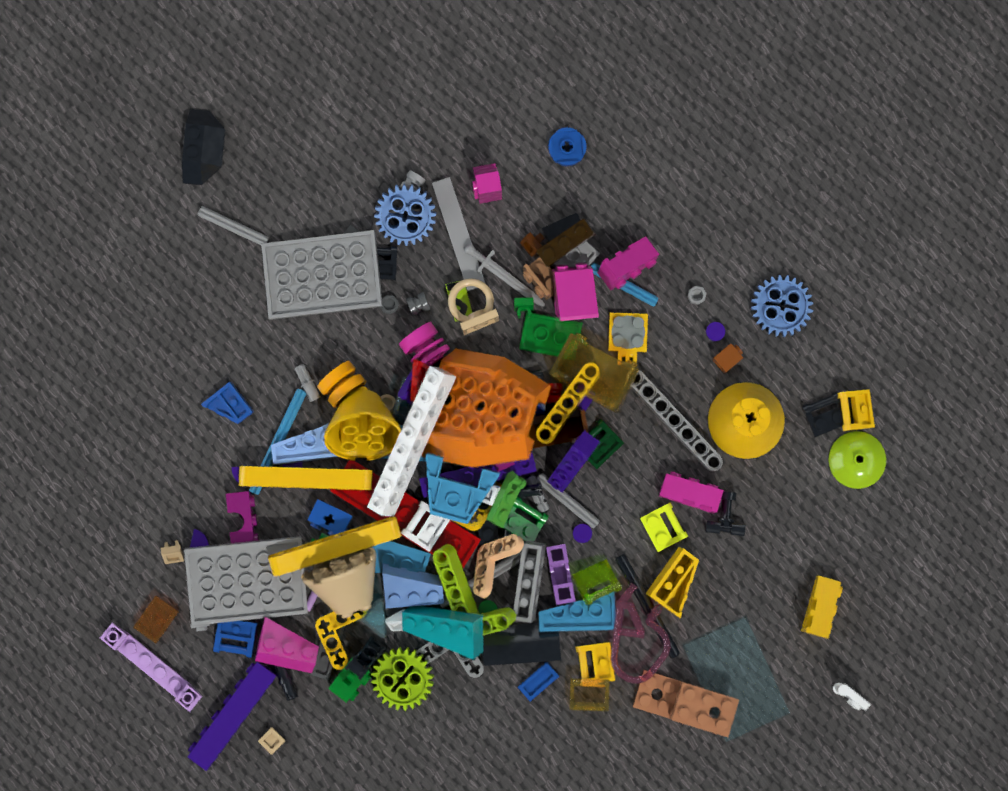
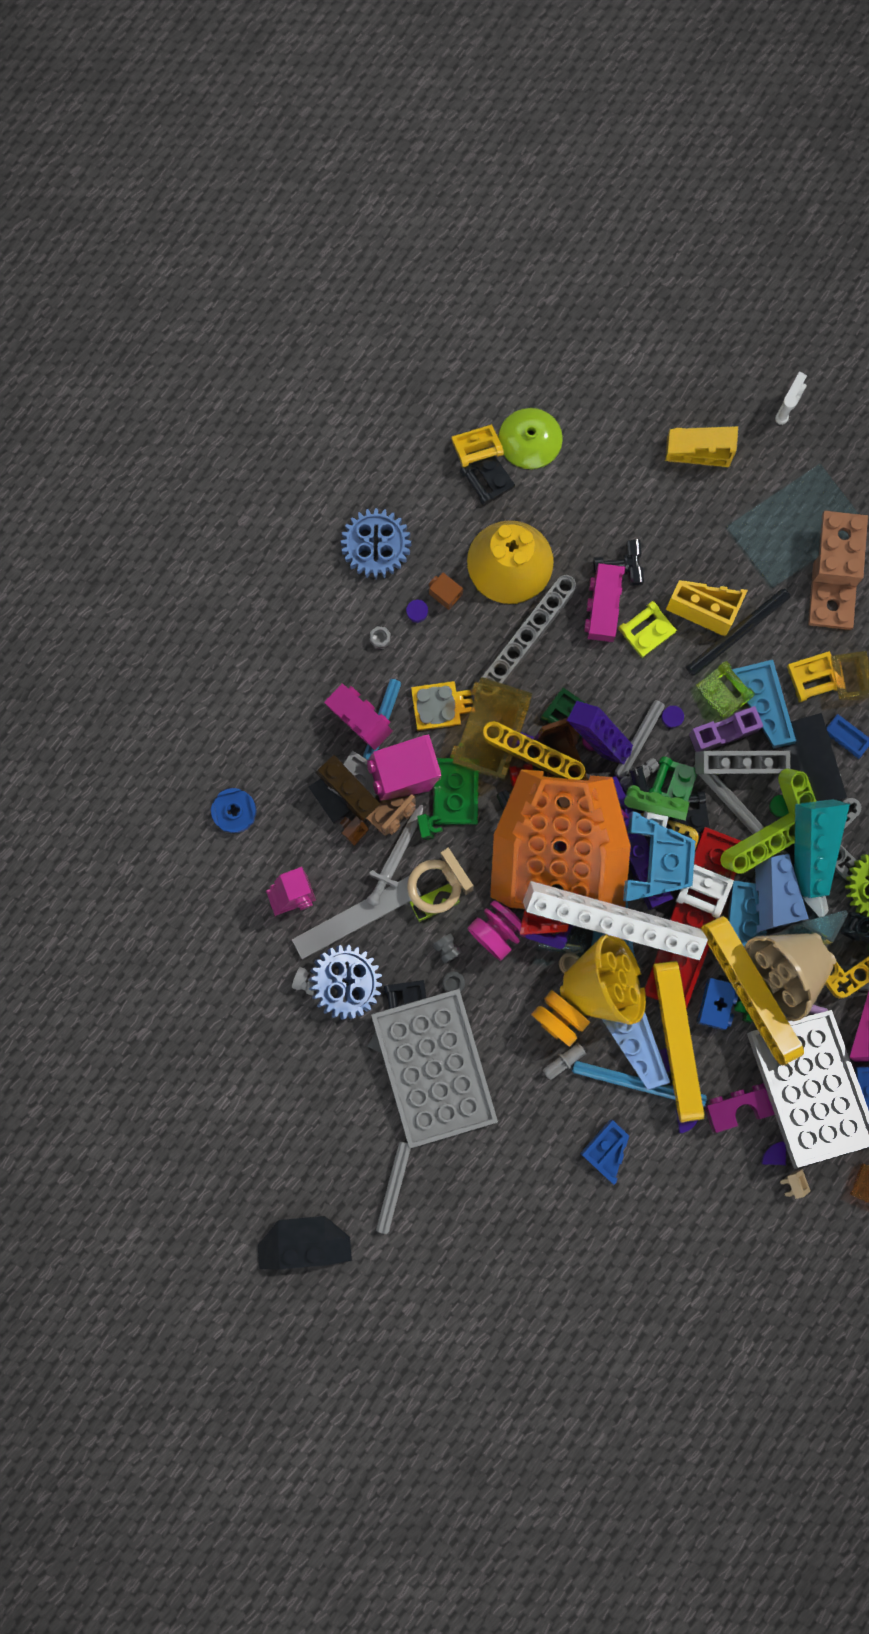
camera: 100 degrees left, 5 degrees down
(487, 556) = (722, 809): light nougat beam -> none
(618, 631) = (743, 654): clear pink piece -> none

